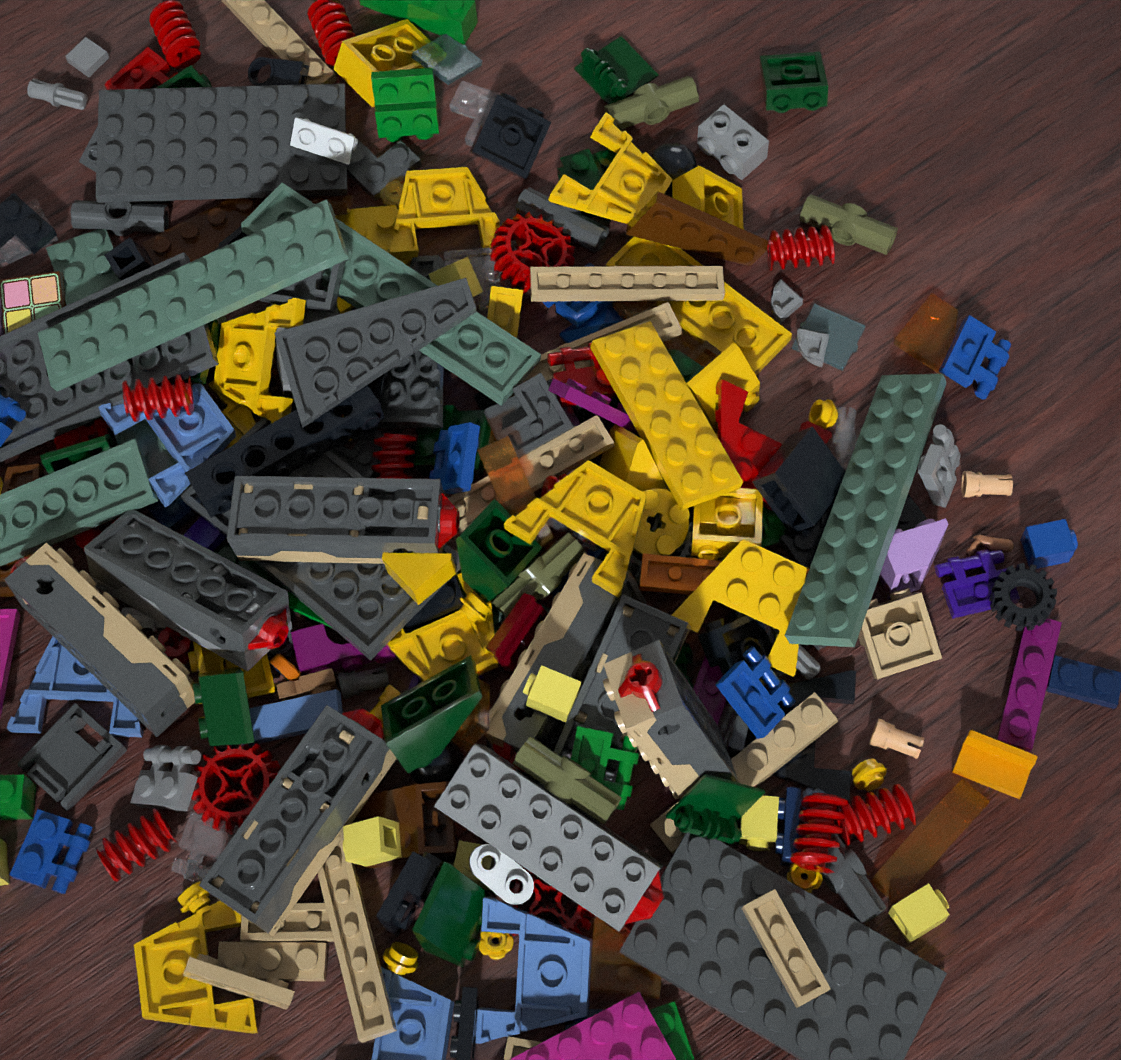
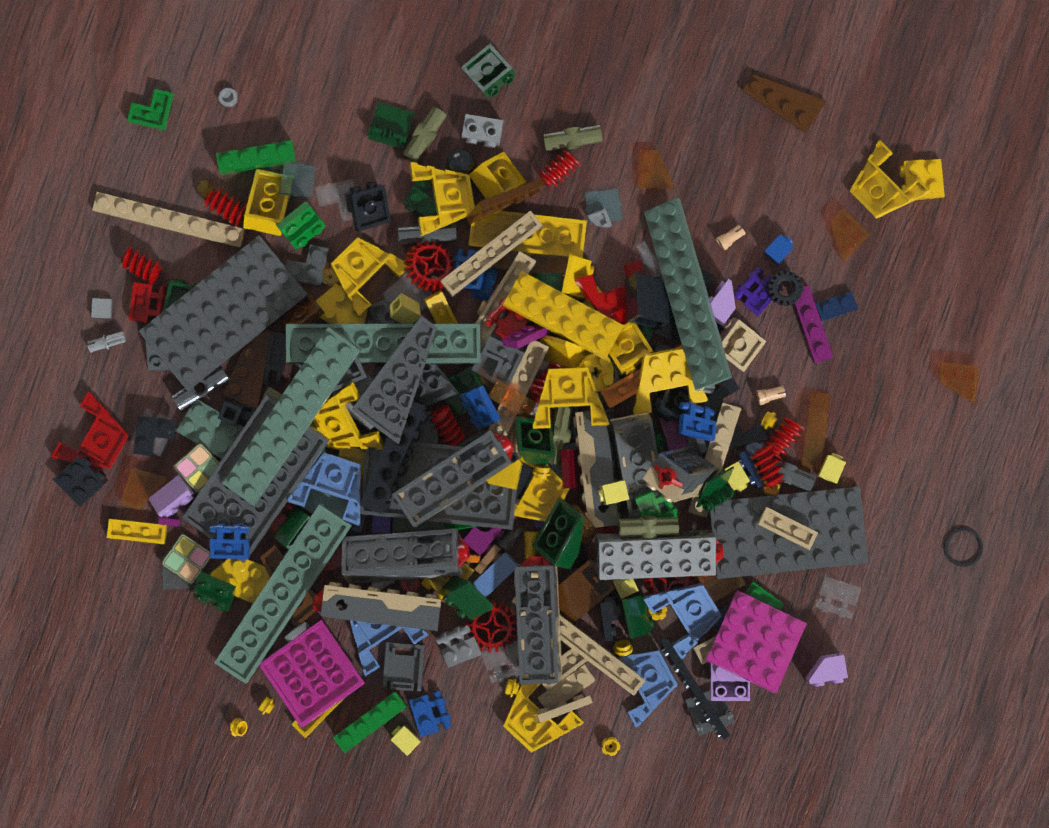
camera: 40 degrees left, 20 degrees up
(136, 845) = (468, 684): red piece -> none
(158, 398) = (316, 477): red piece -> none
(282, 72) = (221, 249): black piece -> none
(323, 140) = (287, 276): white hinge -> none
(372, 841) = (575, 609): light yellow brick -> none
(501, 874) = (644, 585): white plate -> none
(784, 301) = (568, 202): light grey tile -> none
(823, 413) = (630, 253): yellow plate -> none
(939, 466) = (706, 248): light grey plate -> none
(967, 353) = (679, 175): blue plate -> none
(991, 543) = (751, 265): nougat piece -> none
(994, 764) = (821, 377): light orange panel -> none

